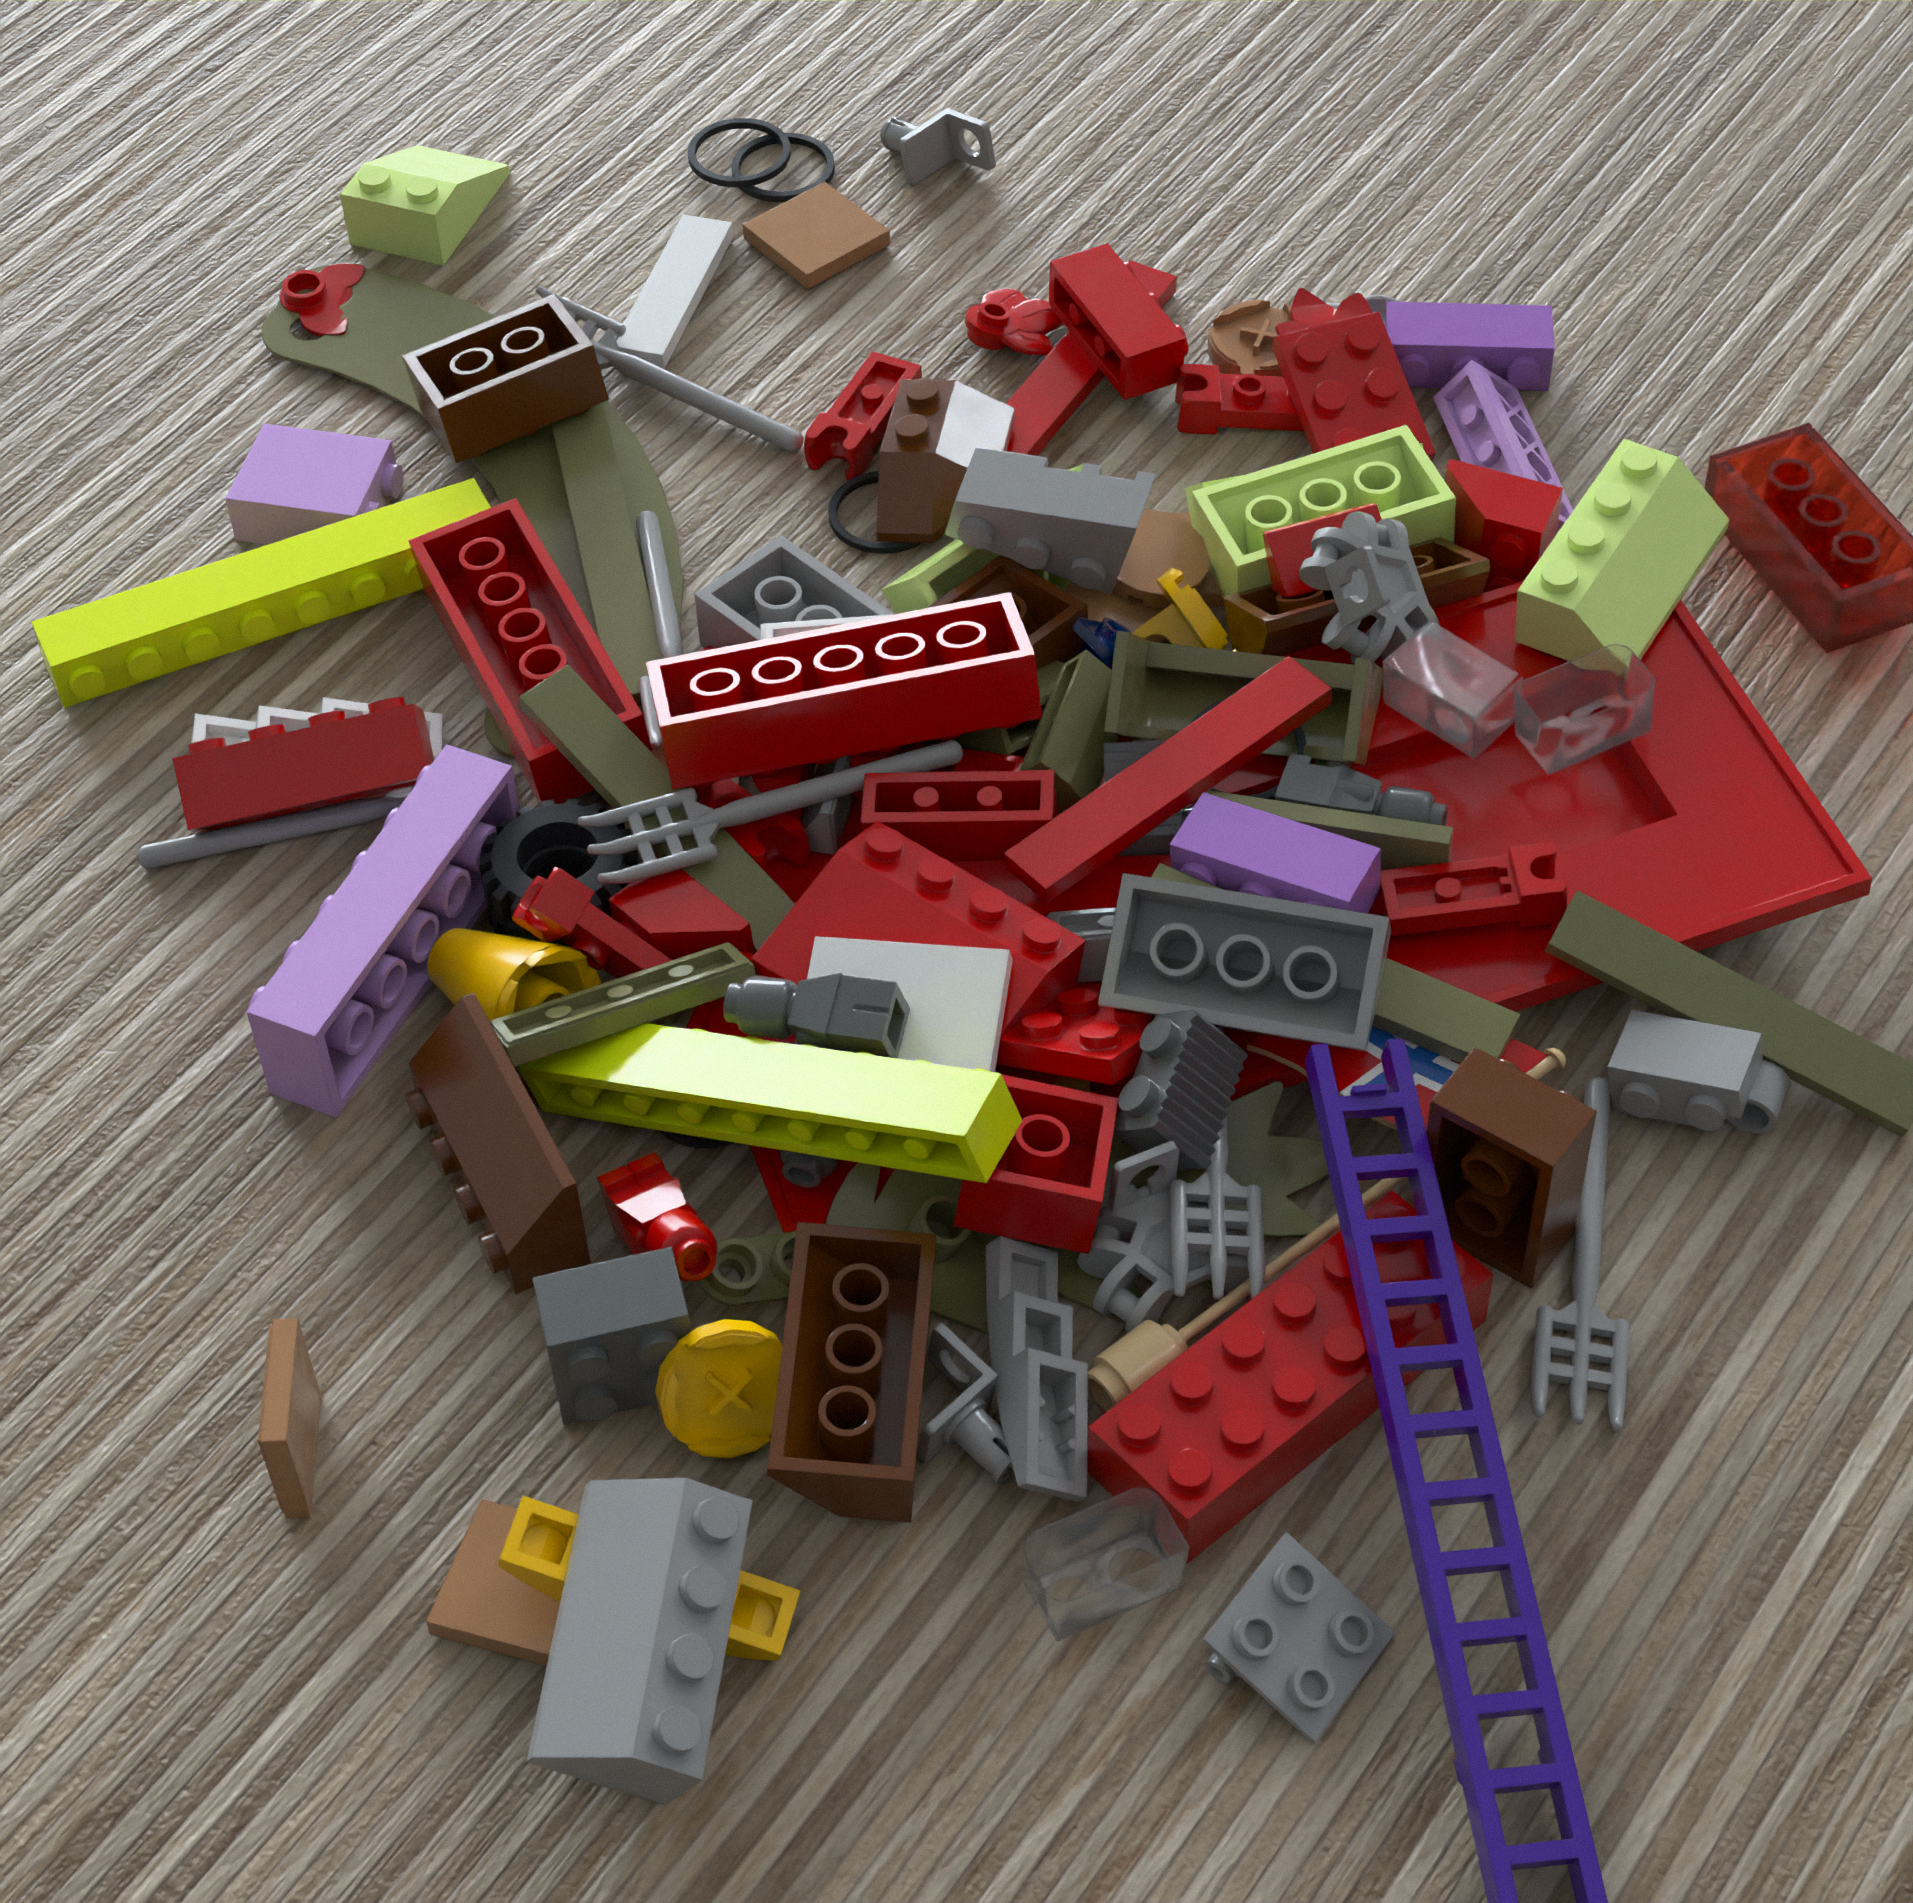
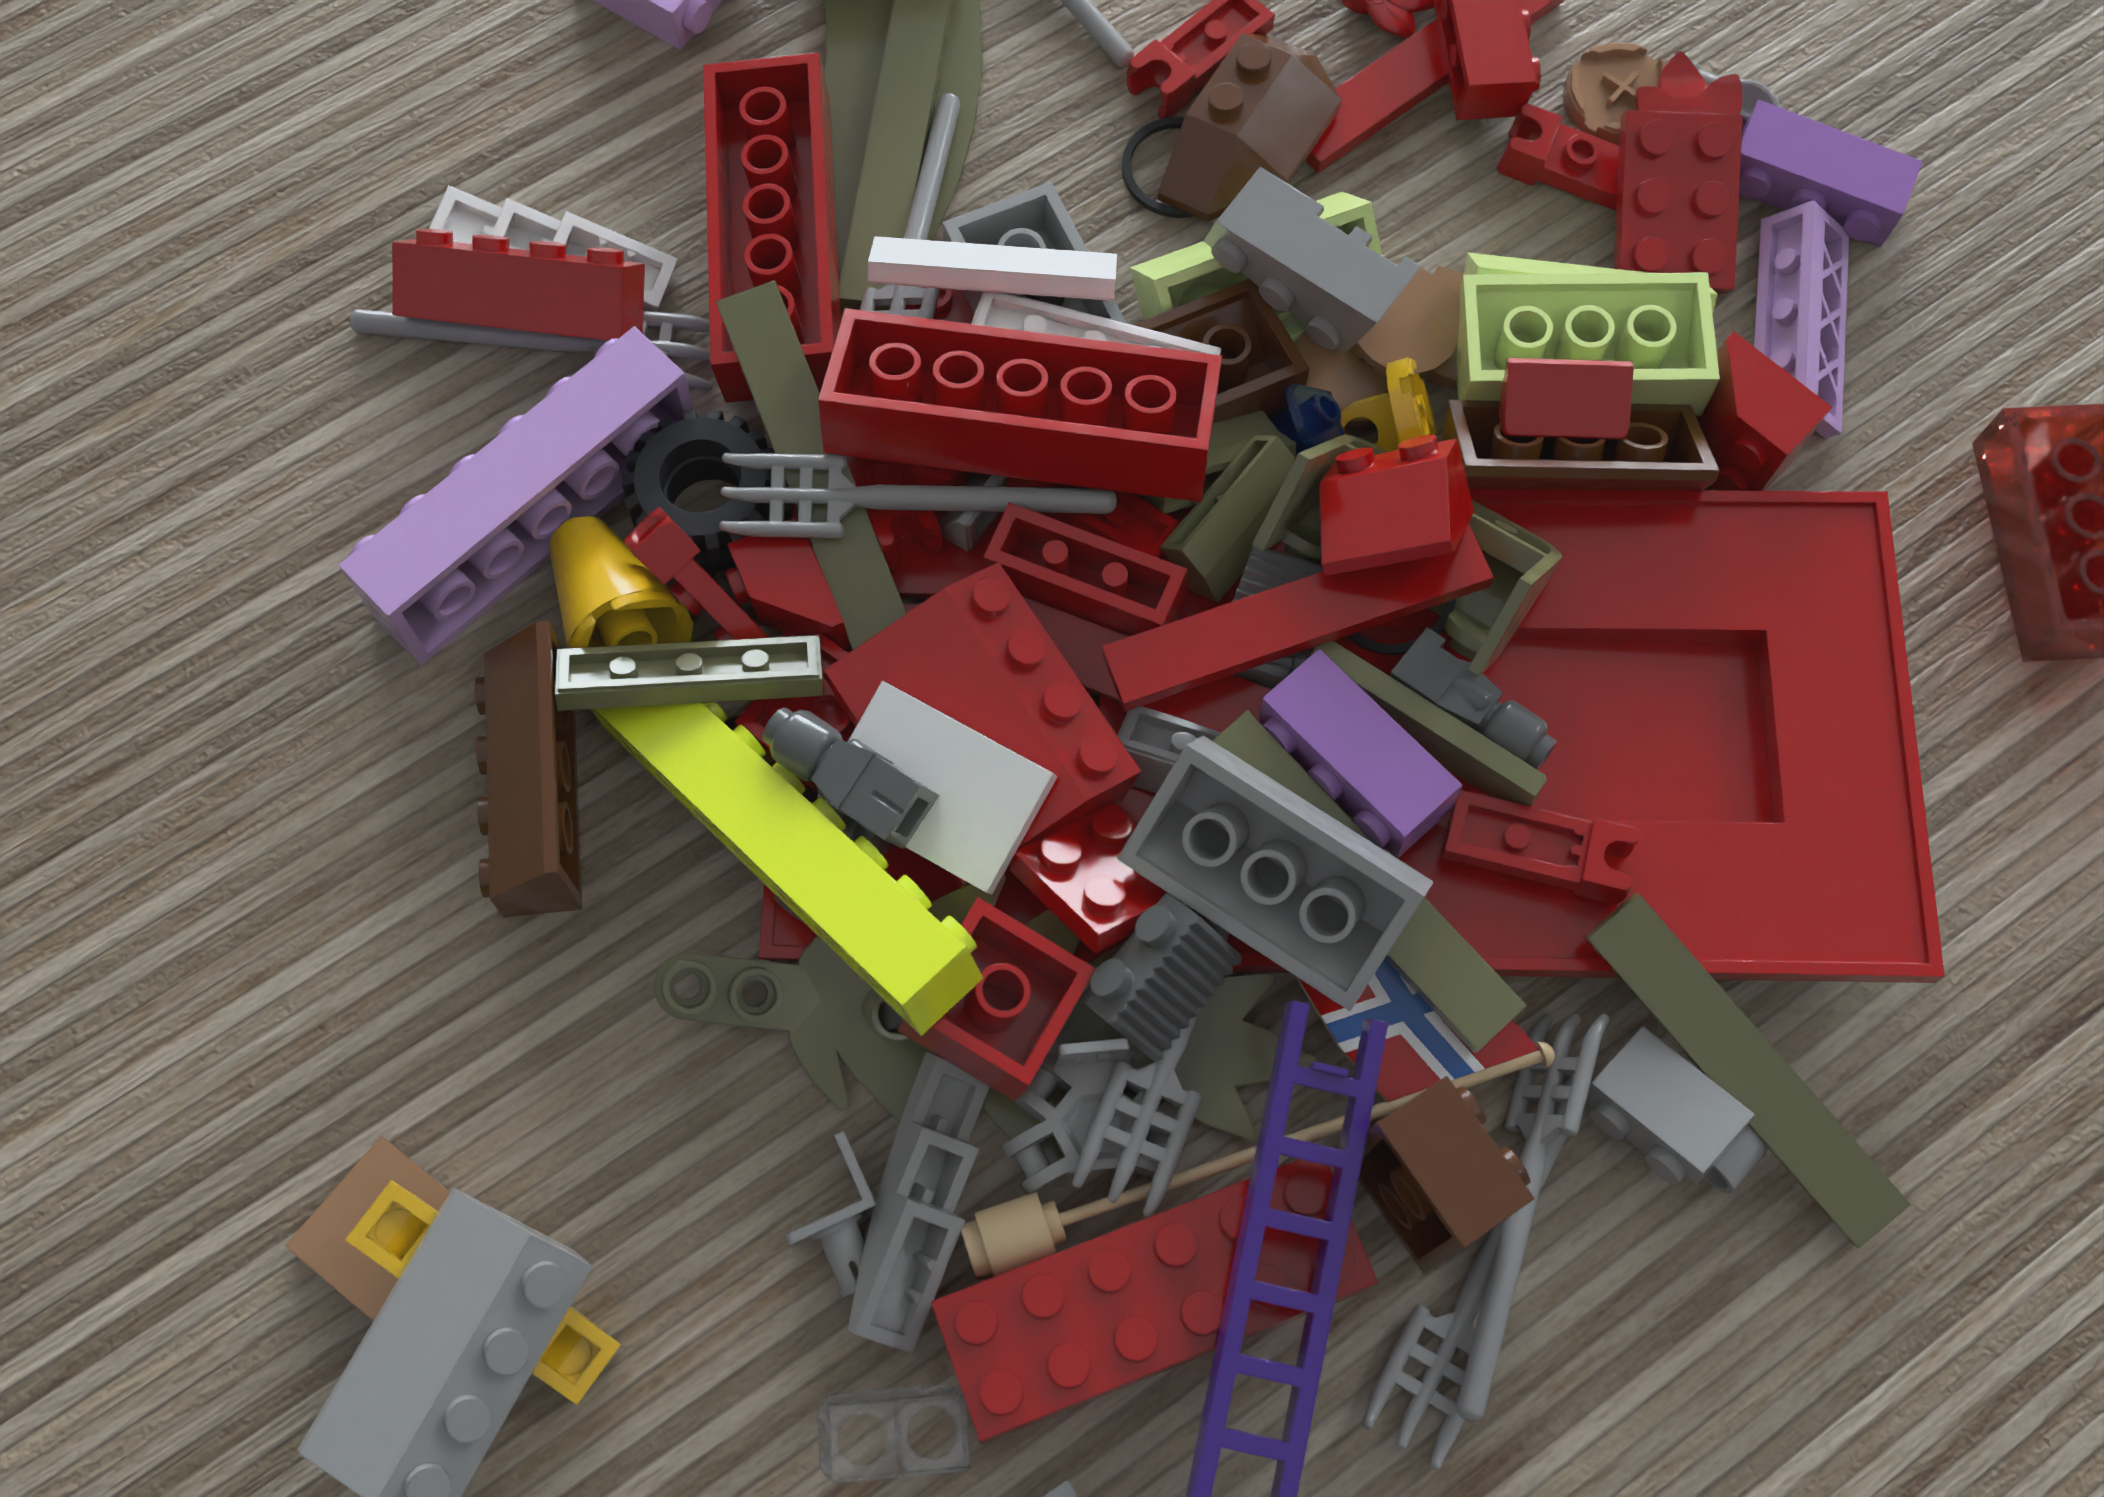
camera: 15 degrees right, 20 degrees up
(244, 597) = (549, 64): neon yellow brick -> none
(289, 1418) = (233, 1001): medium nougat tile -> none
(611, 1331) = (549, 1027): dark grey brick -> none
(653, 1215) = (641, 913): red piece -> none
(721, 1388) = (629, 1115): yellow tile -> none
(762, 607) = (992, 268): none -> white tile
(854, 1369) = (747, 1145): reddish brown slope -> none
(1215, 657) = (1393, 505): none -> red slope
(1368, 574) = (1595, 471): light grey piece -> none
(1450, 688) = (1619, 604): clear piece -> none
(1564, 740) = (1707, 652): clear piece -> none
(1595, 1195) = (1539, 1133): none -> light grey piece
(1620, 557) = (1854, 516): yellowish green slope -> none

